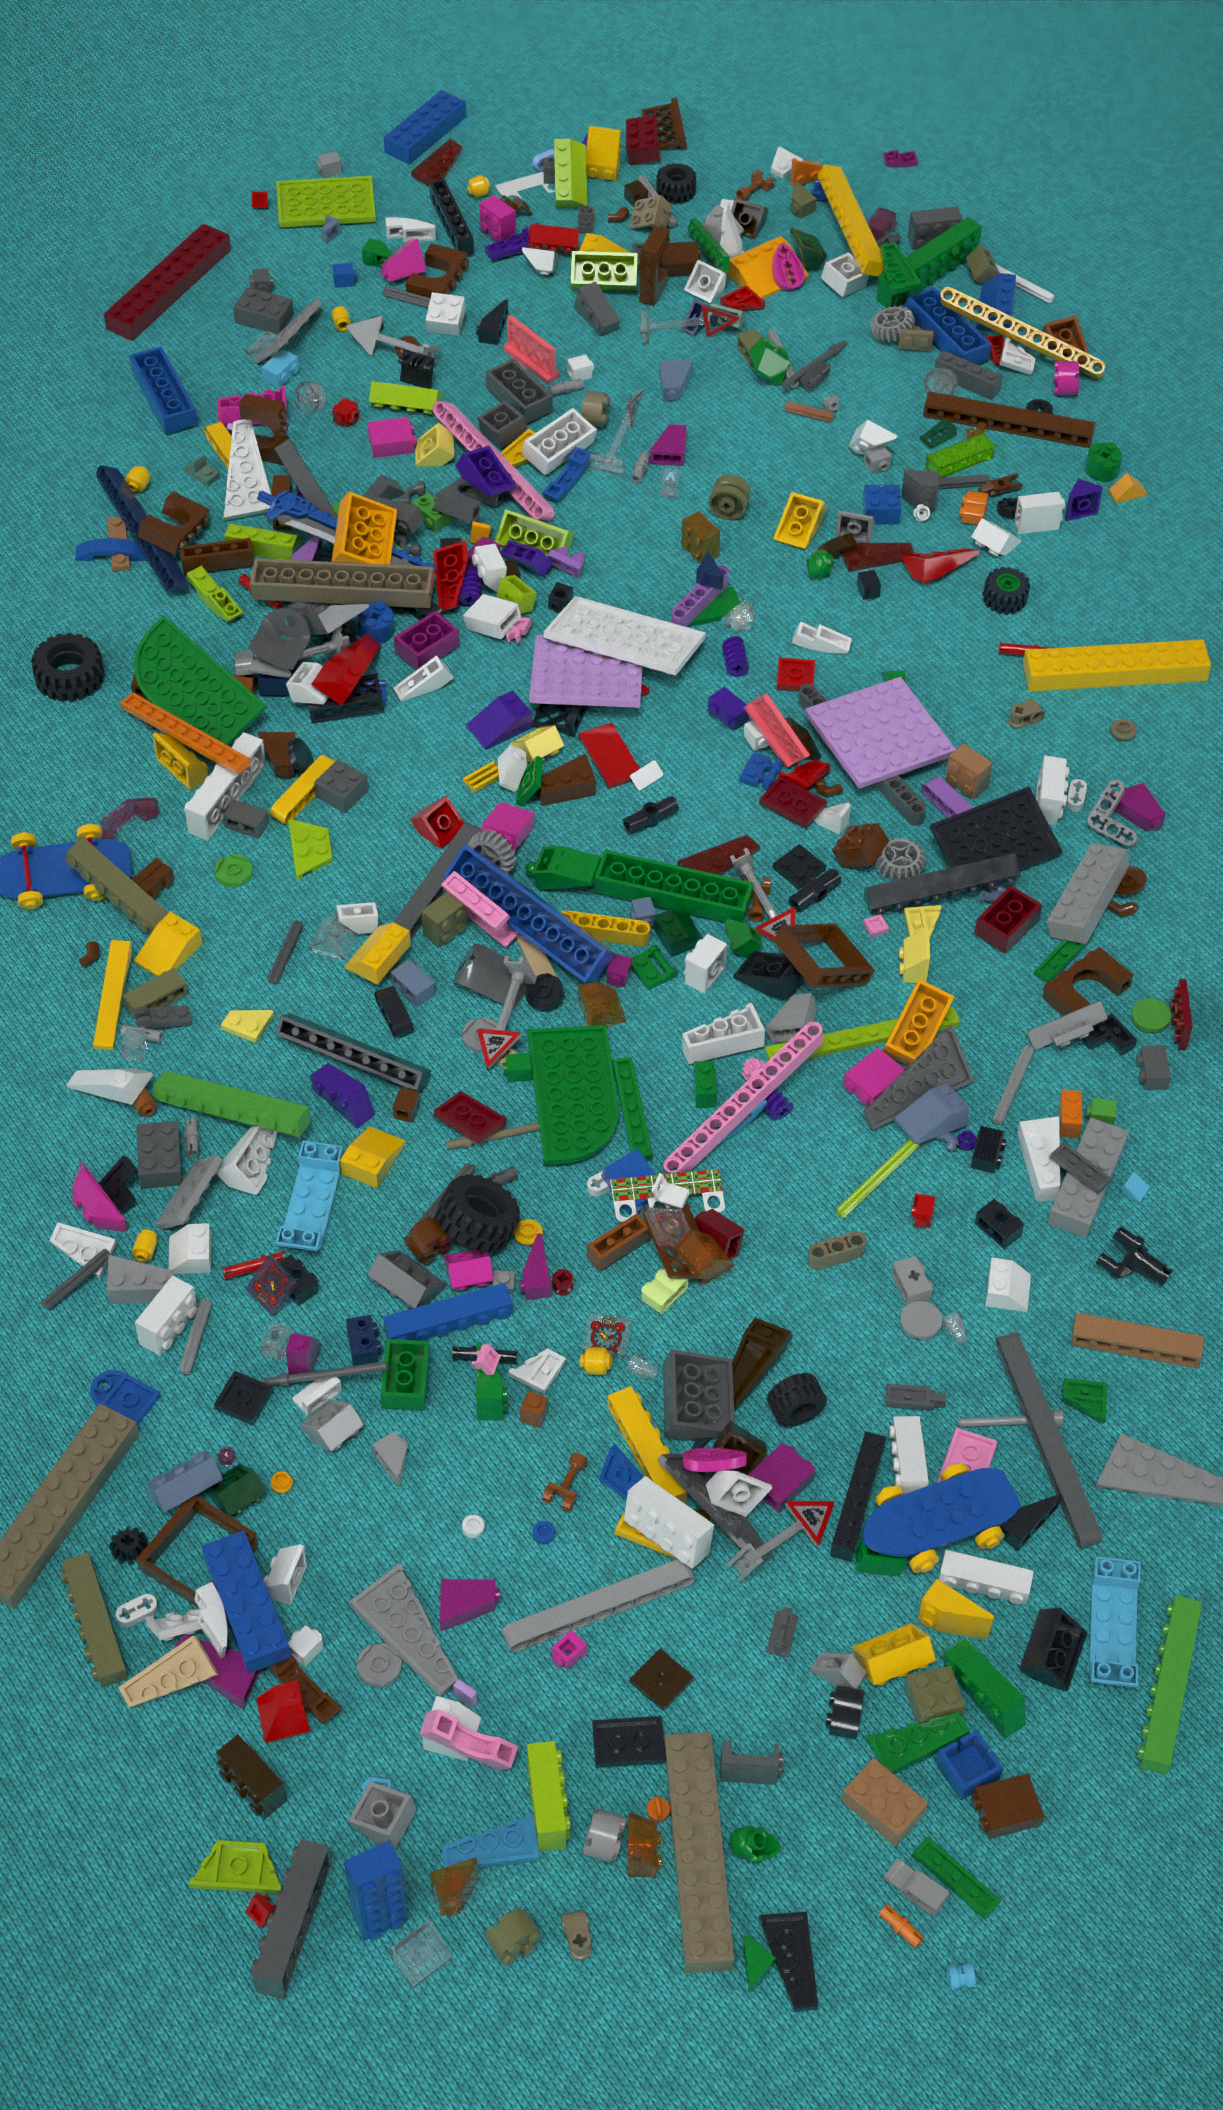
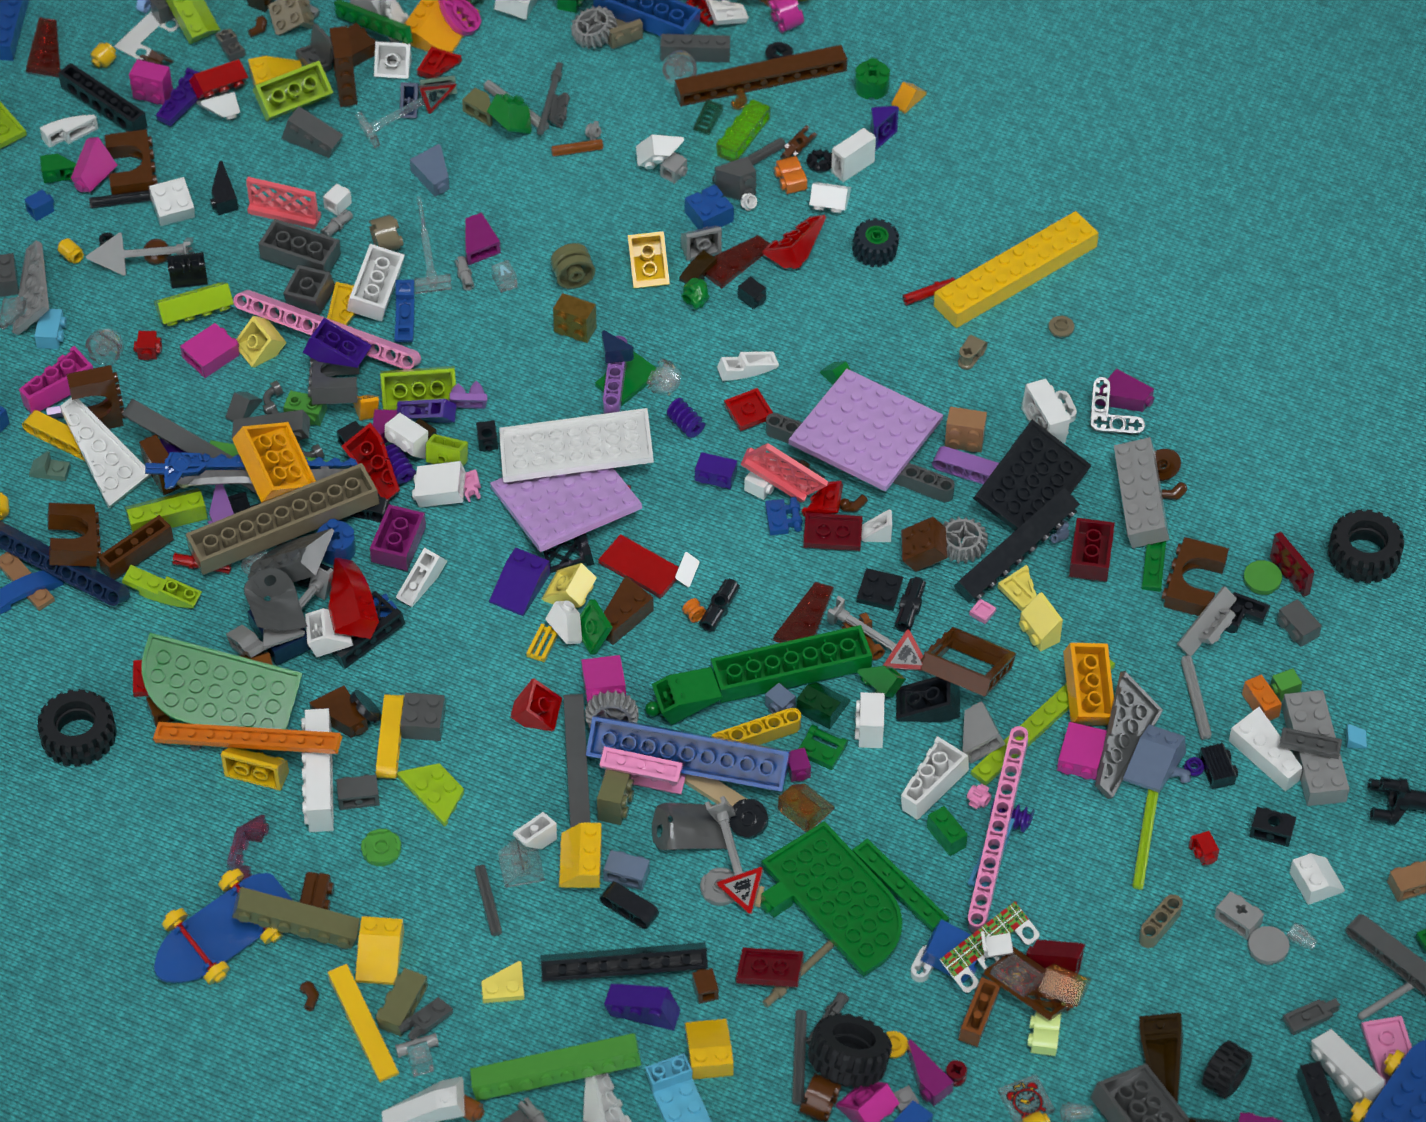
camera: 30 degrees left, 0 degrees up
(626, 807) = (694, 610): none -> orange wheel

